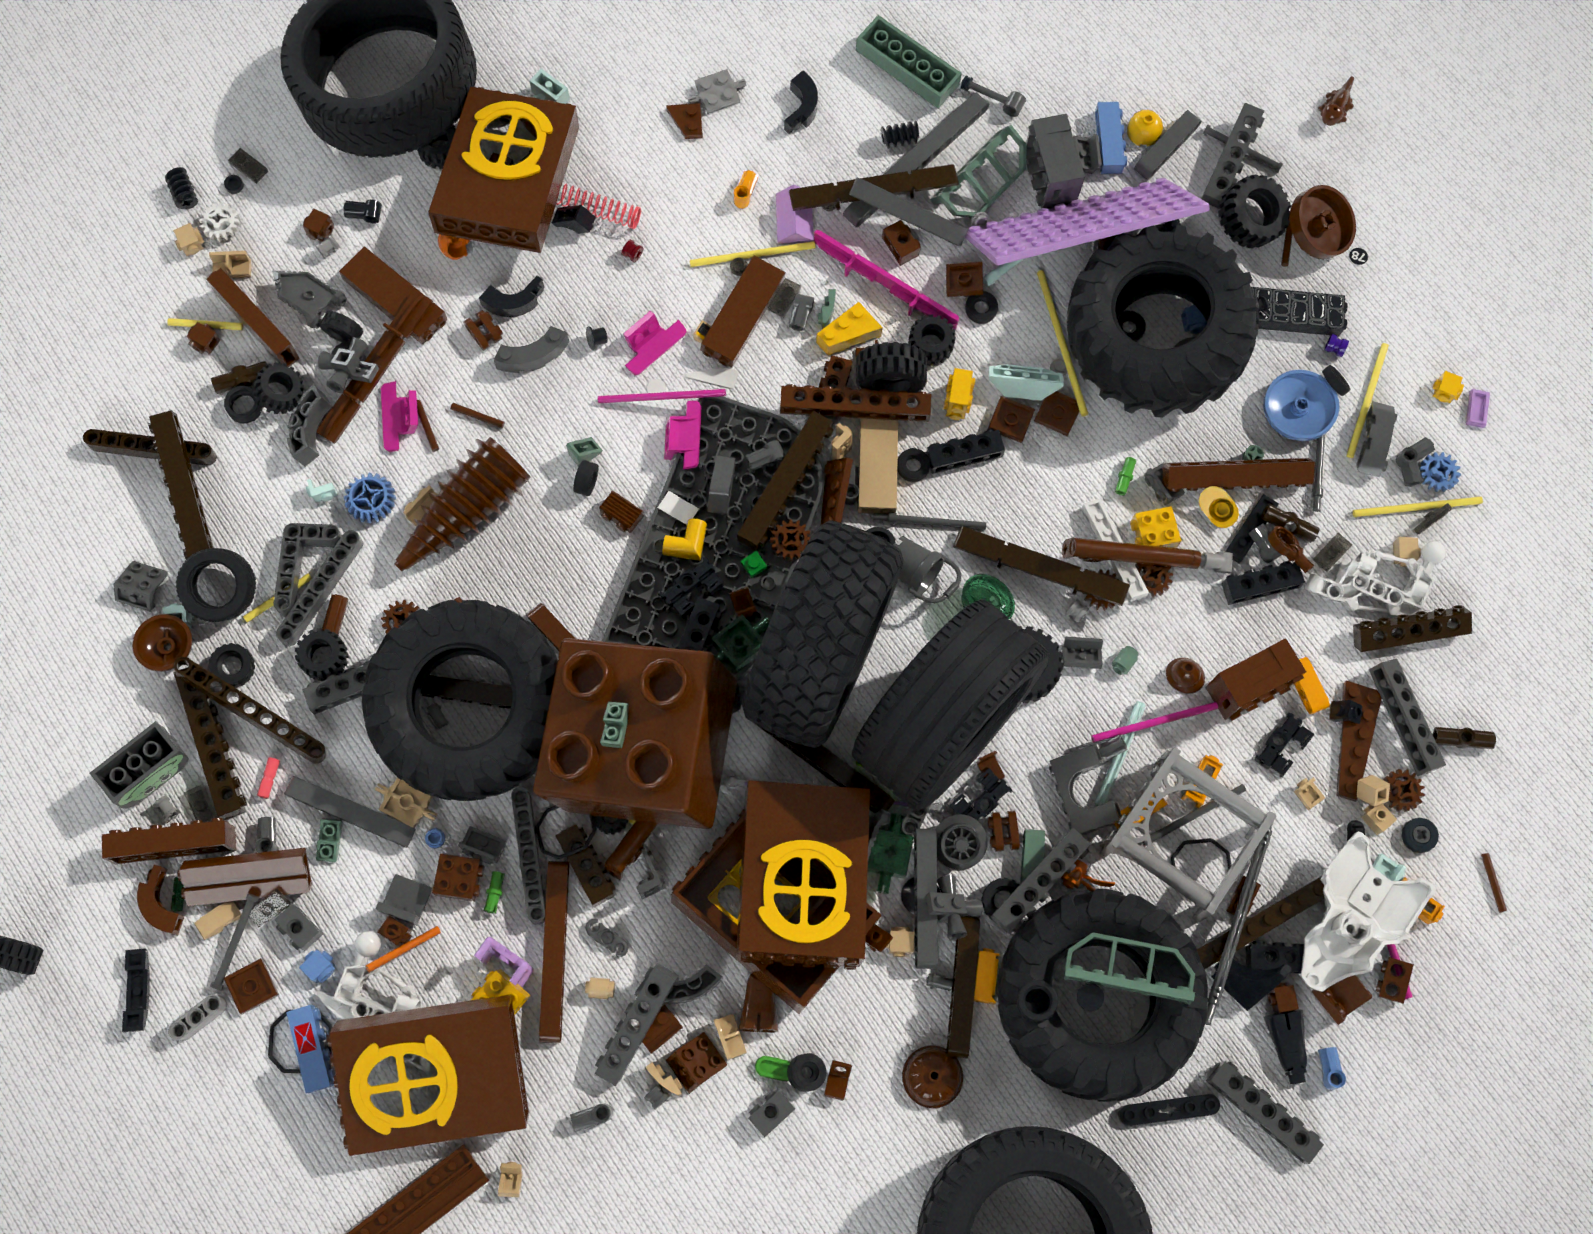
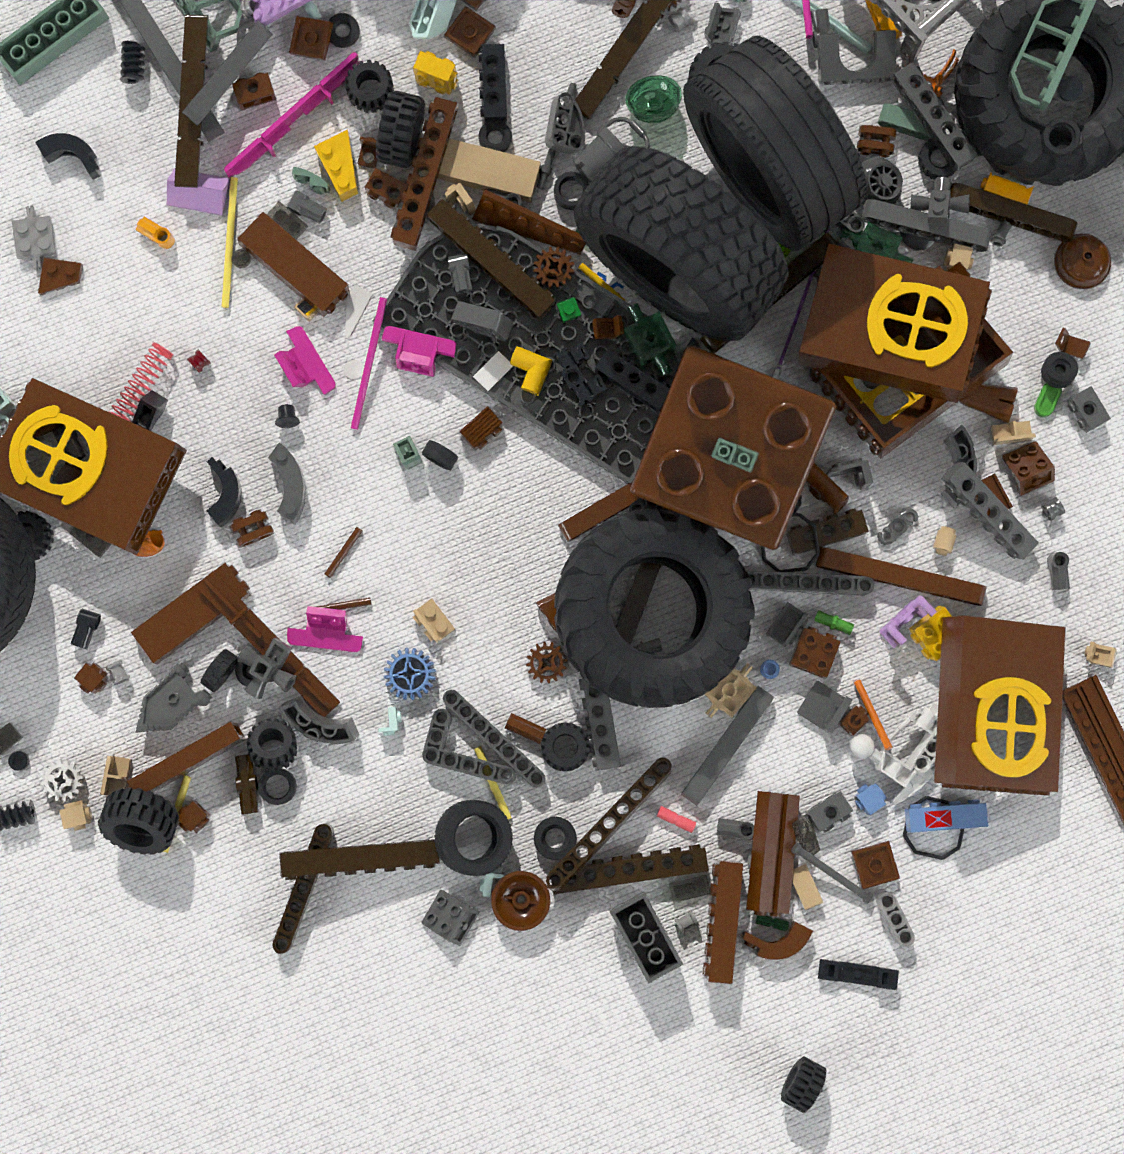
camera: 75 degrees left, 10 degrees up
(185, 286) = (138, 821): none -> black tyre
(329, 840) = (749, 770): sand green slope -> none
(465, 501) = (442, 575): reddish brown cone -> none
(669, 1083) = (1042, 496): tan slope -> none
(938, 530) = (571, 128): none -> dark grey beam

